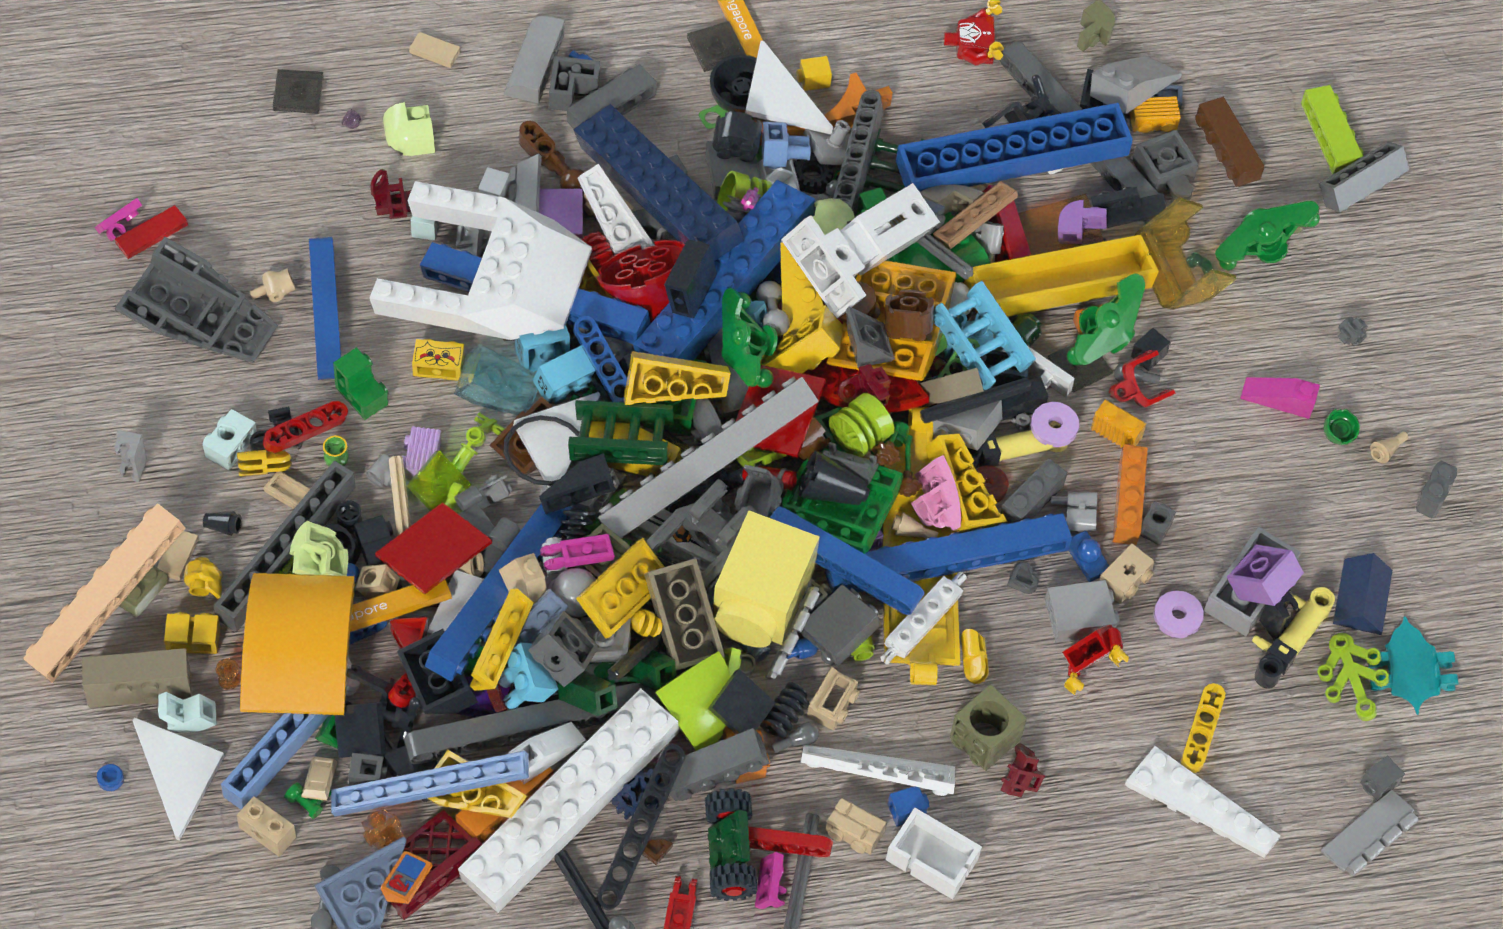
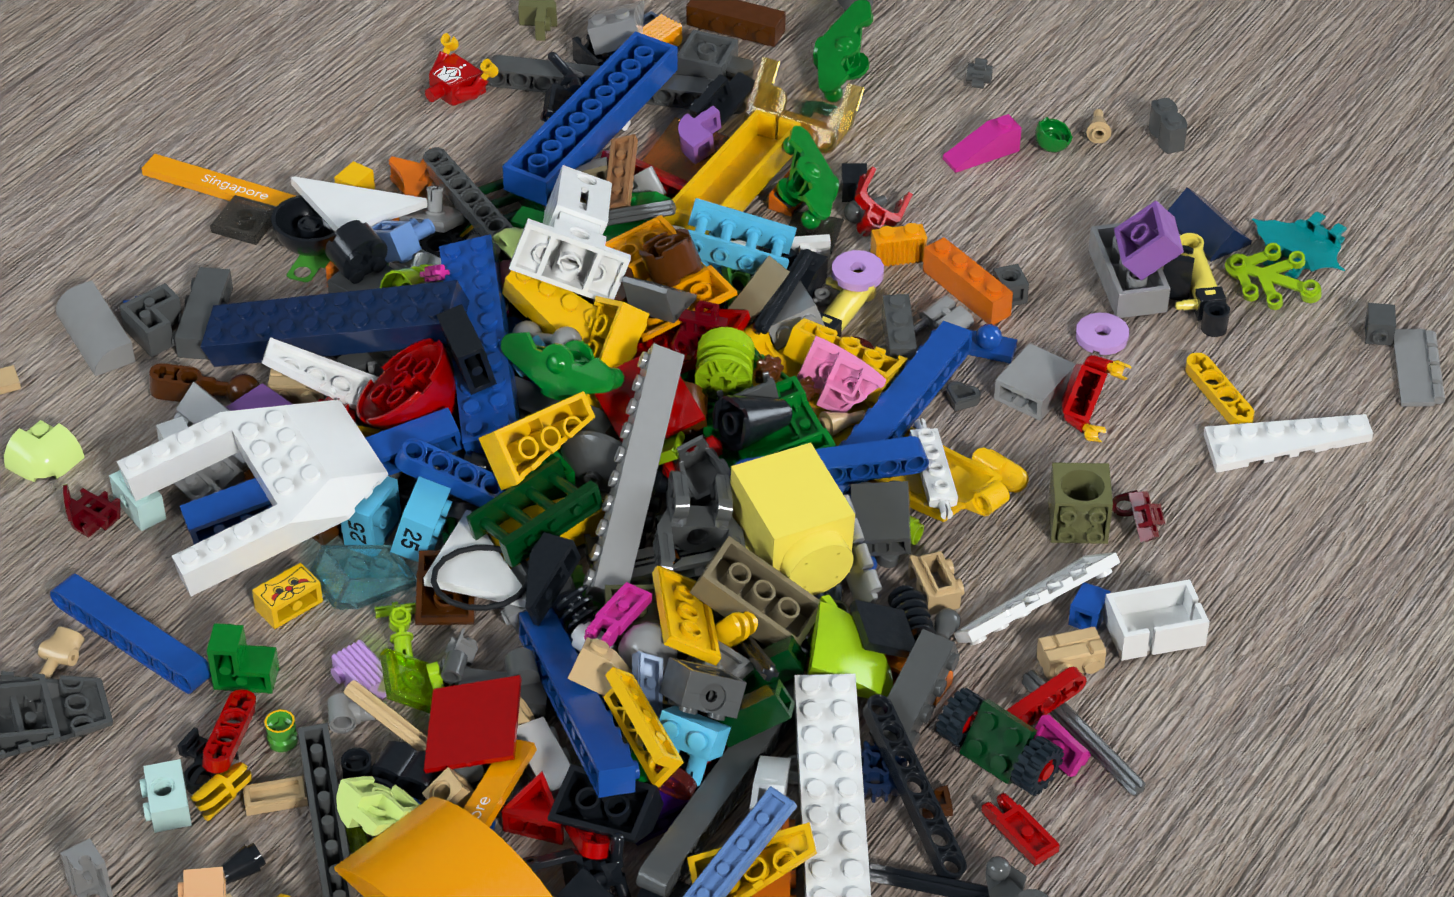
camera: 40 degrees left, 15 degrees down
(1128, 573) = (1035, 327): tan brick -> none

